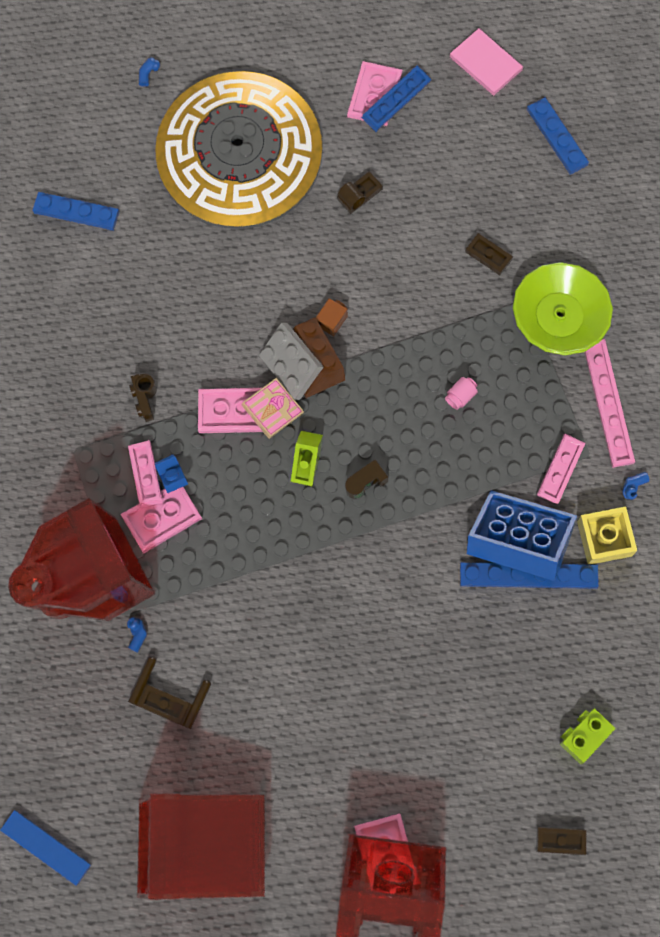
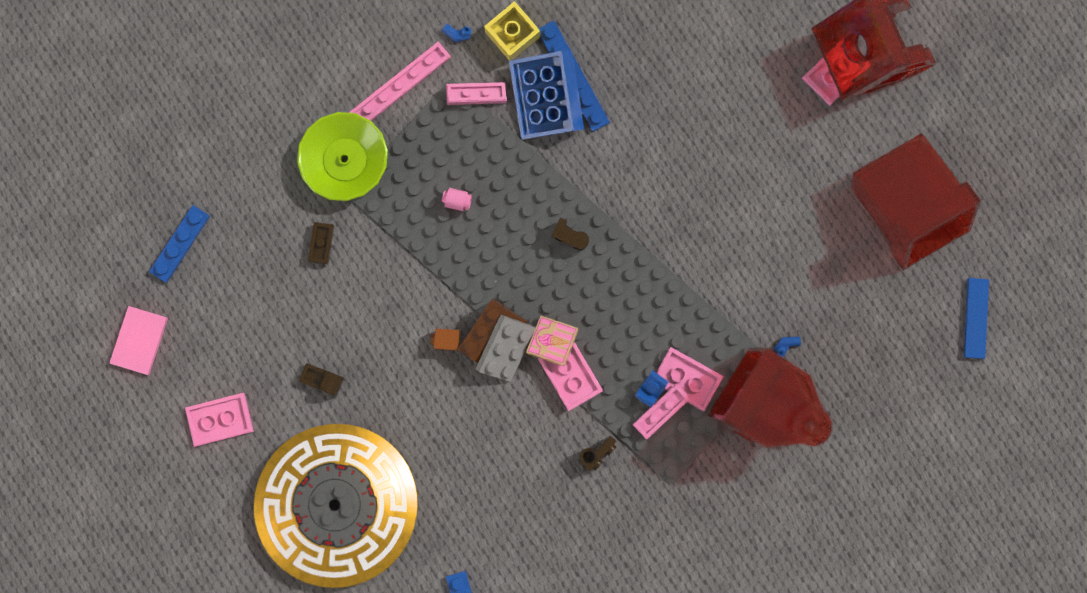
camera: 125 degrees left, 10 degrees up
(164, 703) = (825, 292): dark brown plate -> none
(306, 458) = (577, 291): lime slope -> none
(396, 98) = (216, 396): blue tile -> none

